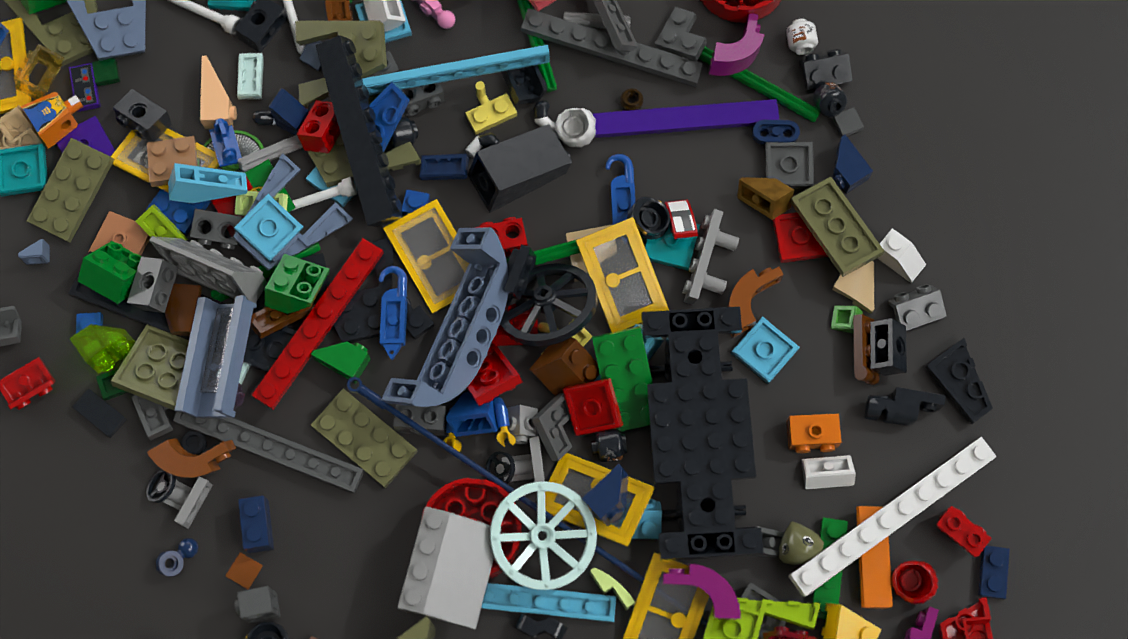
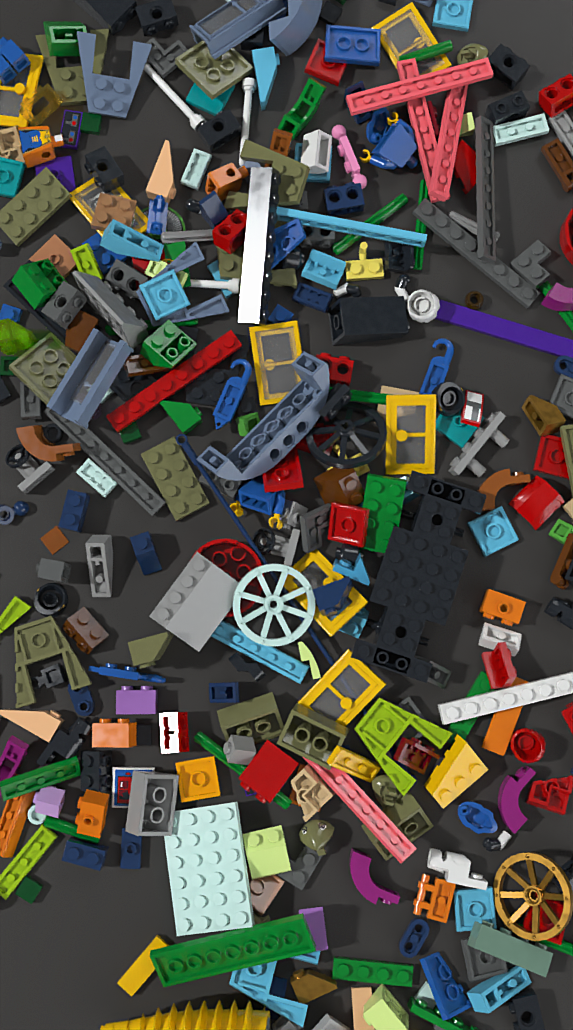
camera: 20 degrees right, 10 degrees up
(268, 474) = (96, 477): none -> light aqua plate
(289, 73) = (225, 179): none -> orange torso
(289, 405) = (130, 433): none -> dark green tile
(313, 576) = (100, 564): none -> light grey slope
(363, 539) = (146, 553): none -> dark blue slope
(424, 339) = (247, 423): none -> bright green slope
(439, 50) = (345, 204): none -> dark blue brick
(444, 130) = (324, 269): none -> medium azure bracket
(484, 49) = (375, 219): none -> green axle
(626, 458) = (357, 572): none -> dark azure slope
(718, 589) = (380, 689): magenta arch -> none
(799, 544) = (455, 685): olive piece -> none
(801, 295) = (537, 501): none -> red slope
(841, 502) = (499, 666): none -> red bracket

